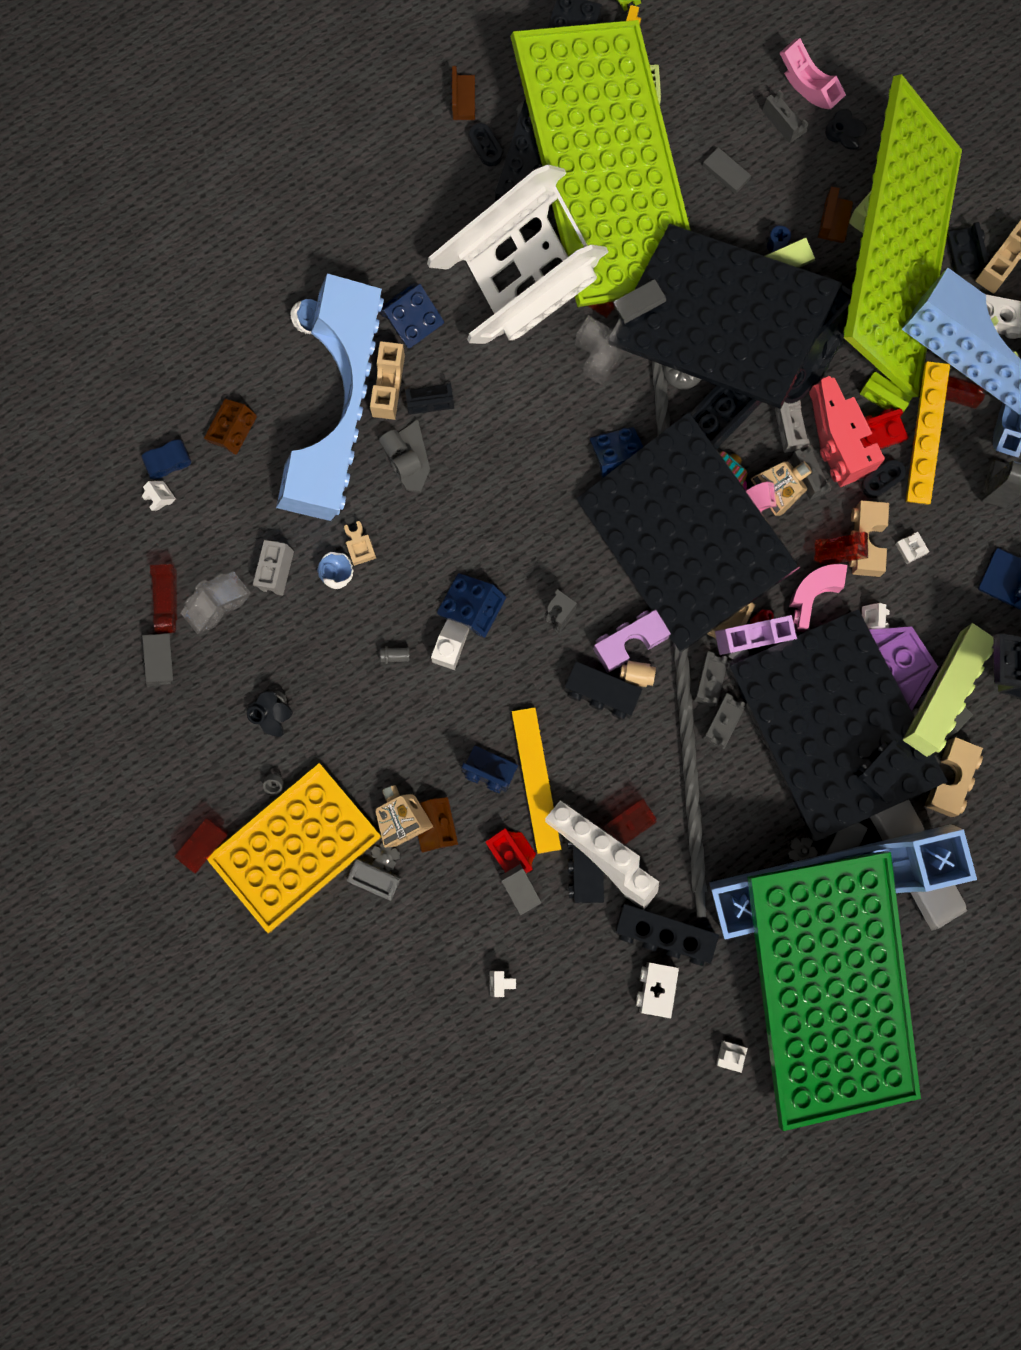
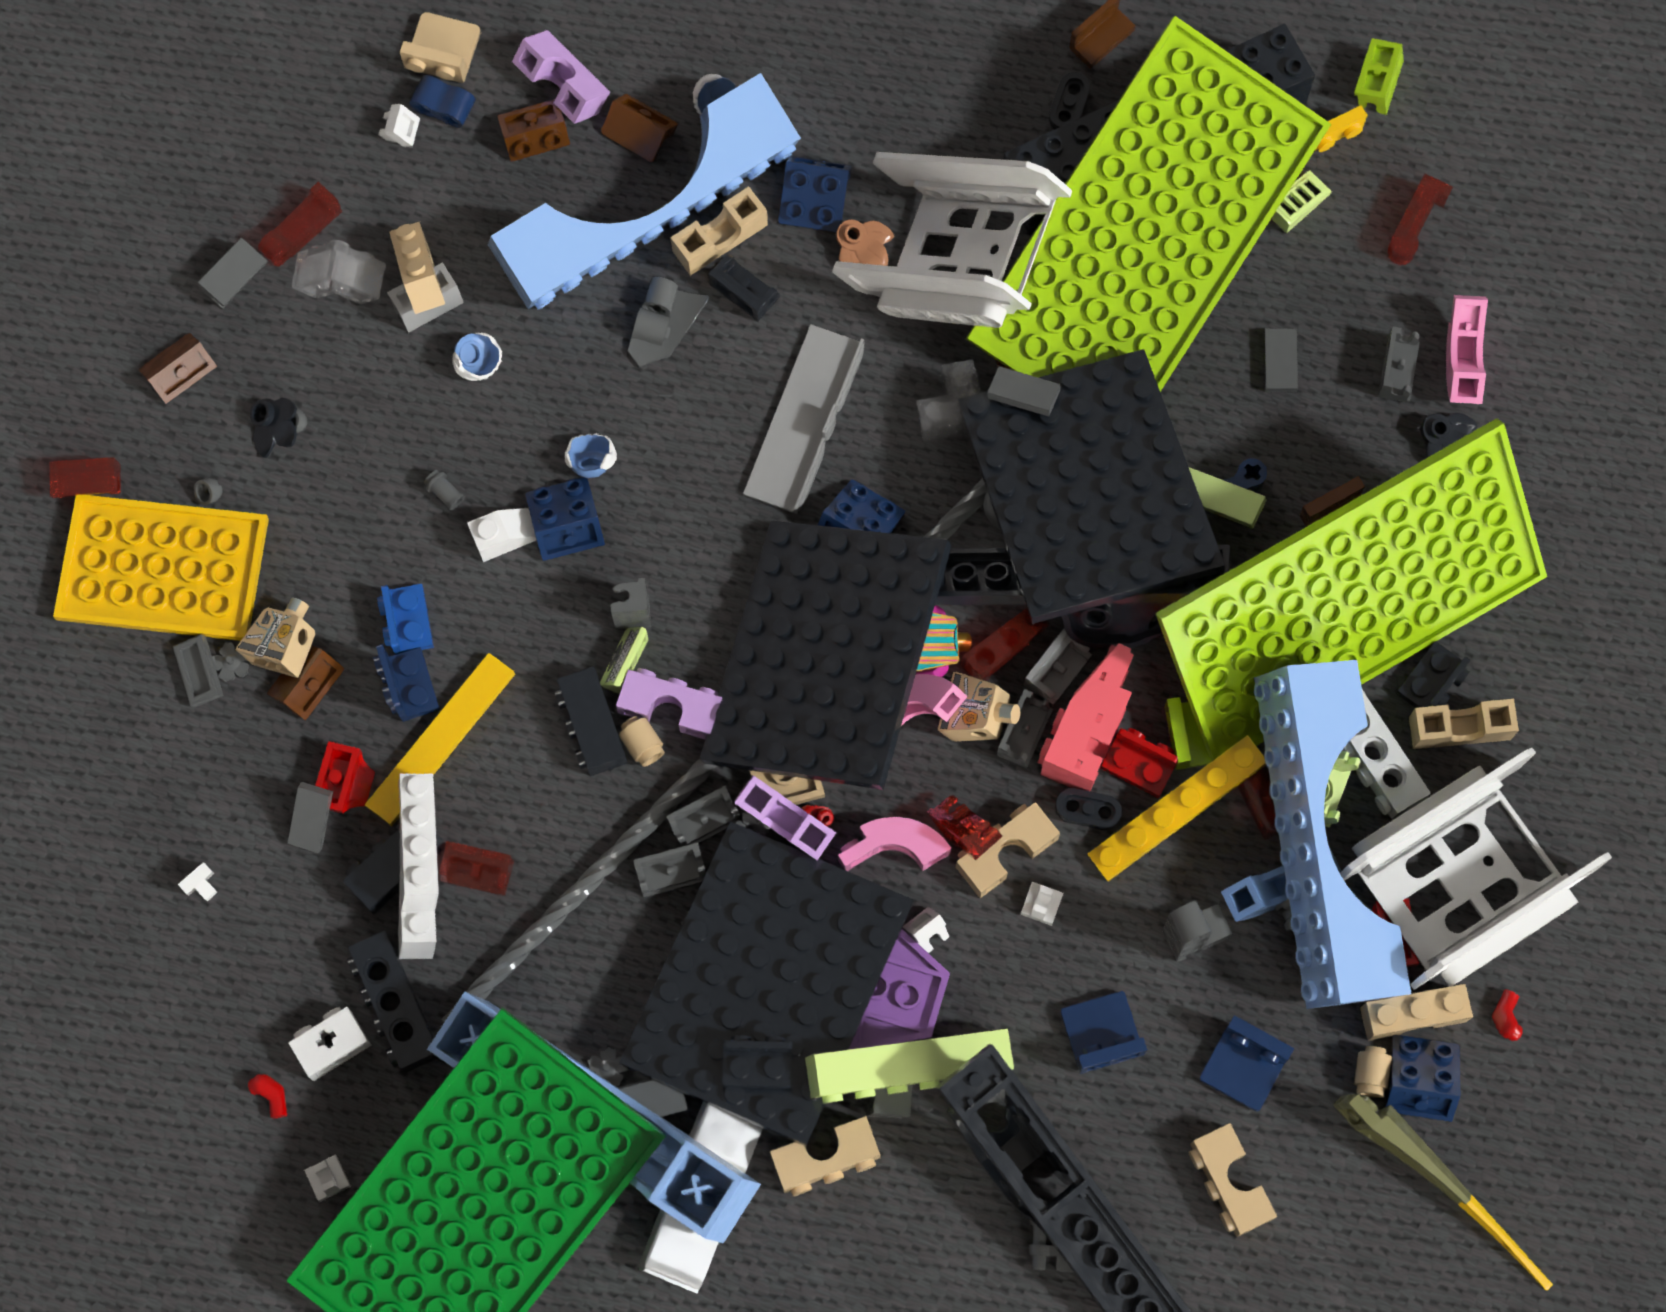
camera: 50 degrees right, 5 degrees down
(133, 432) = (441, 47): none -> tan bracket
(182, 737) = (178, 367): none -> panel
(199, 382) = (547, 59): none -> lavender arch
(254, 553) = (417, 267): none -> tan arch
(283, 372) = (637, 127): none -> reddish brown panel
(360, 546) = (524, 359): tan plate -> none
(450, 559) = (590, 455): none -> medium blue hair
(450, 738) = (406, 618): none -> blue bracket
(467, 315) = (869, 244): none -> nougat plate
(534, 432) = (804, 419): none -> light grey piece
(581, 642) = (624, 658): none -> yellowish green slope
(655, 1045) = (272, 1091): none -> red arm
(713, 38) = (1405, 239): none -> clear red leg
(756, 442) = (1002, 646): none -> clear red leg

